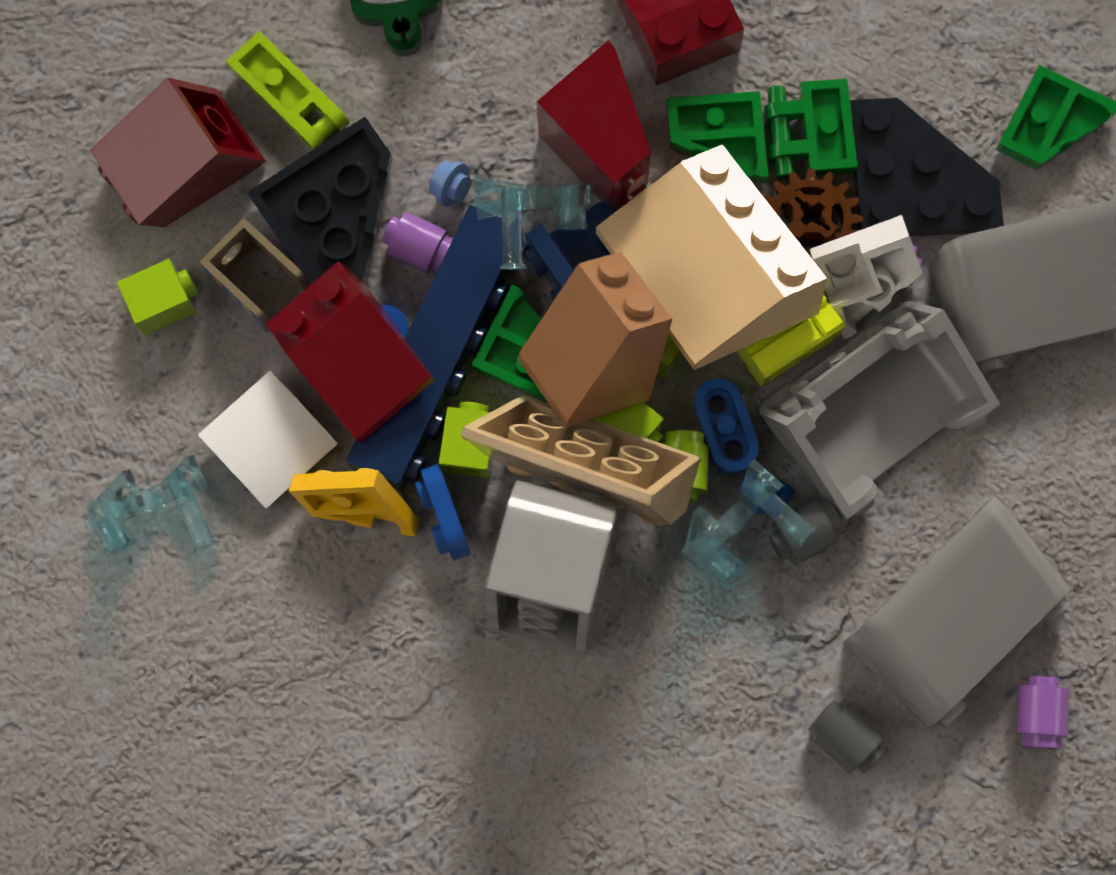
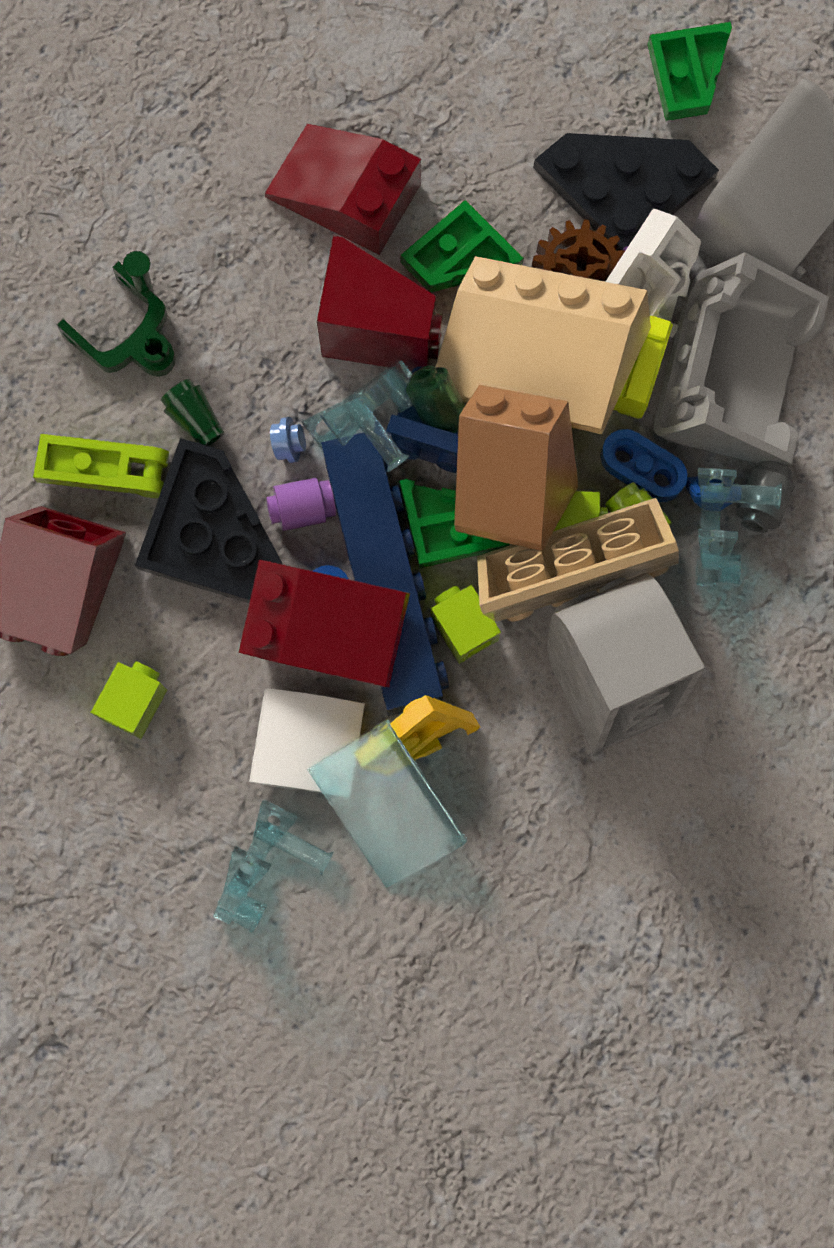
camera: 45 degrees left, 0 degrees up
(244, 237) = (167, 595): dark tan piece -> none
(285, 536) = (387, 804): none -> clear light blue piece
(393, 103) = (192, 412): none -> dark green cone
(449, 532) = (474, 682): blue plate -> none
(588, 233) = (436, 398): none -> clear green brick
(826, 128) = (533, 191): green plate -> none

